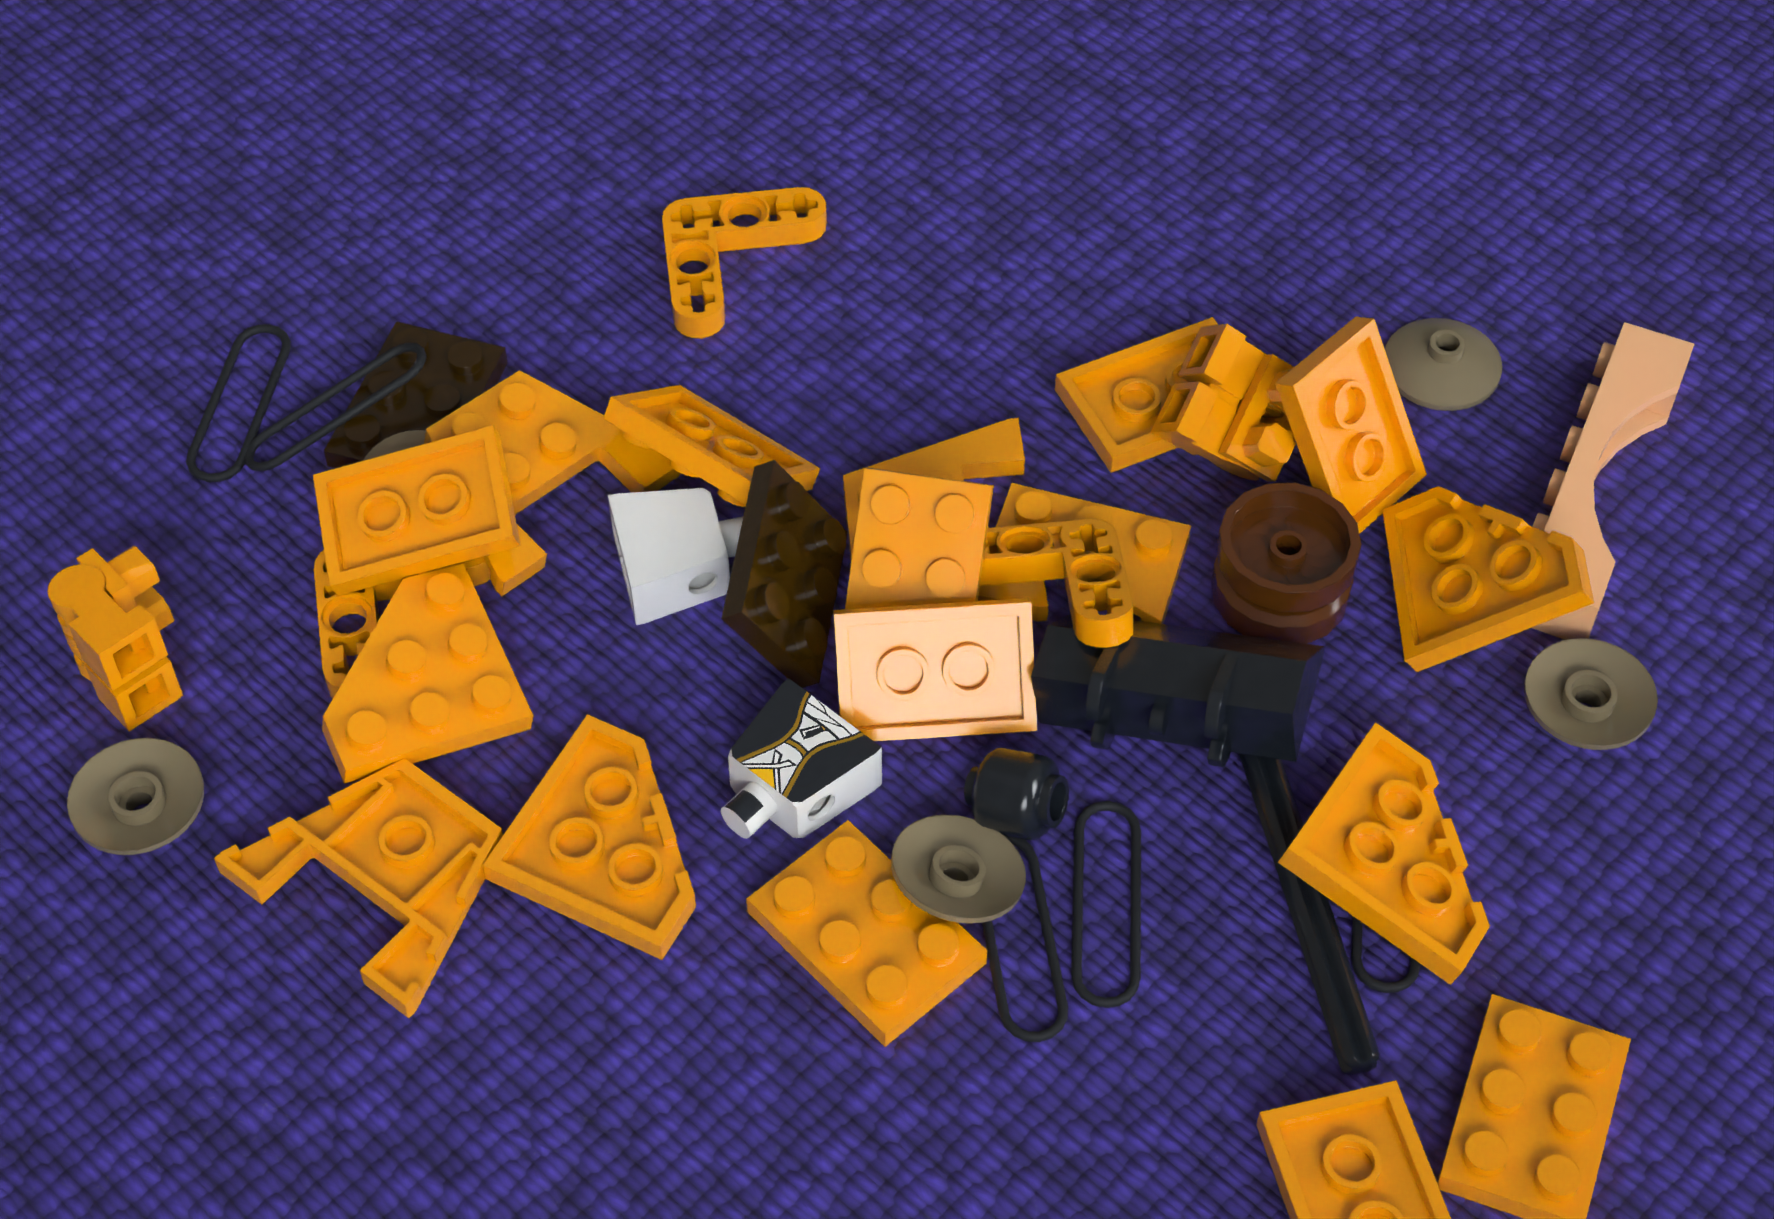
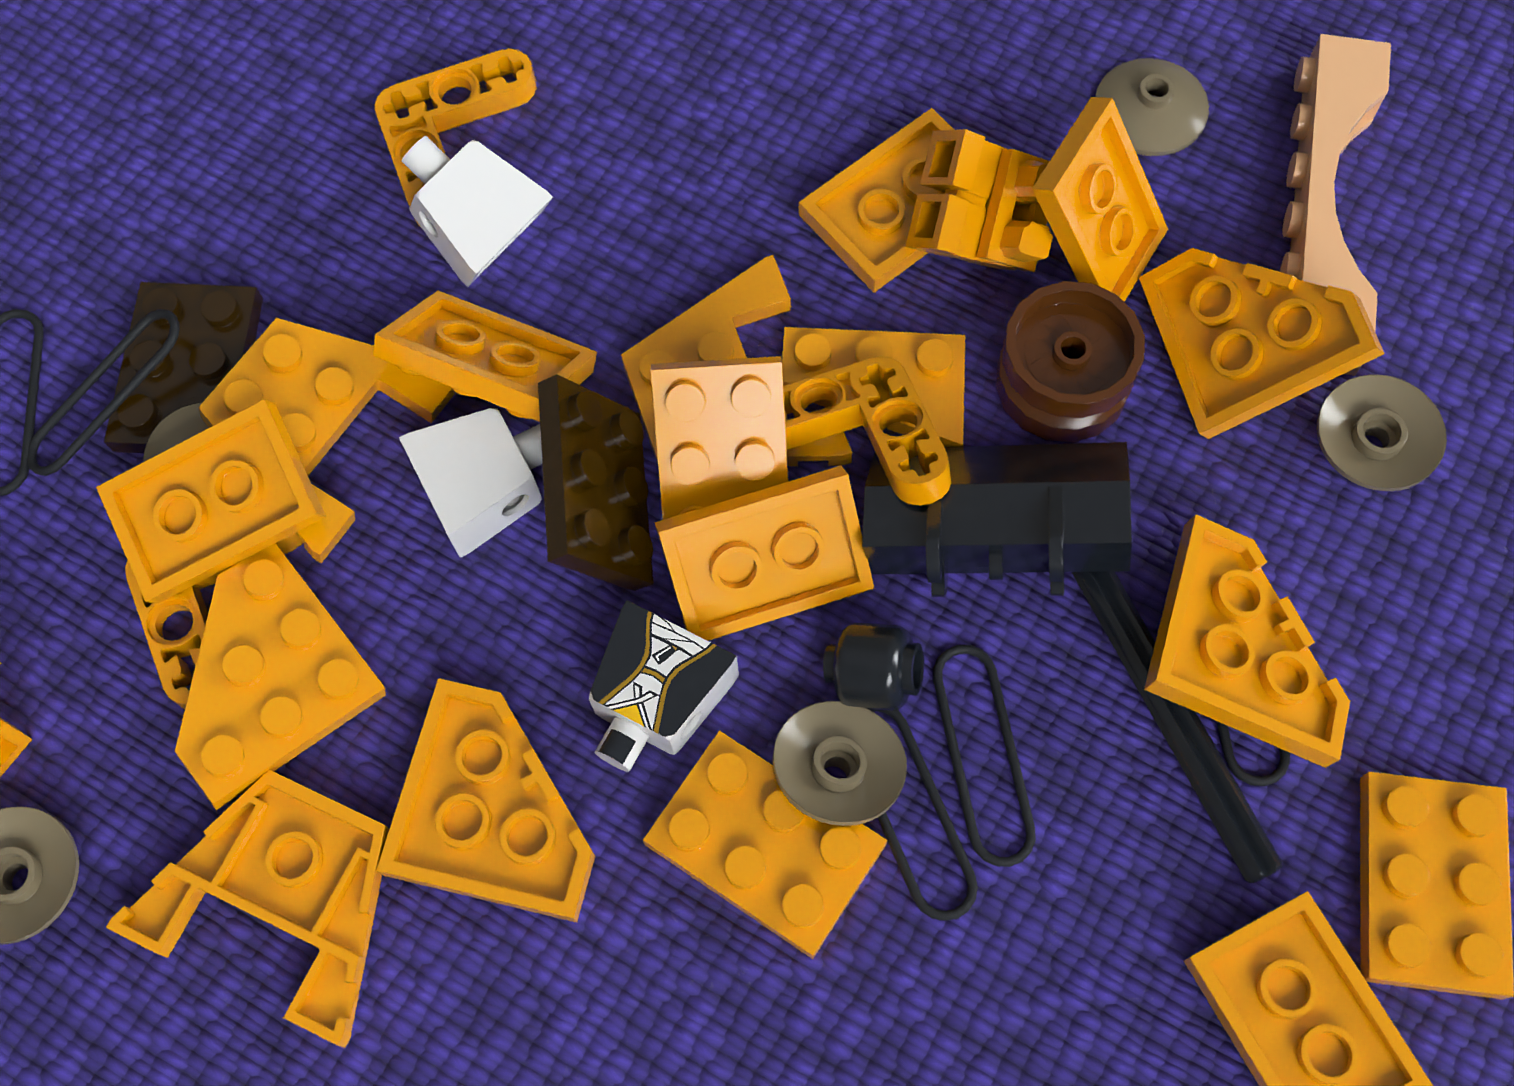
camera: 10 degrees left, 15 degrees up
(734, 313) = (471, 204): none -> white torso

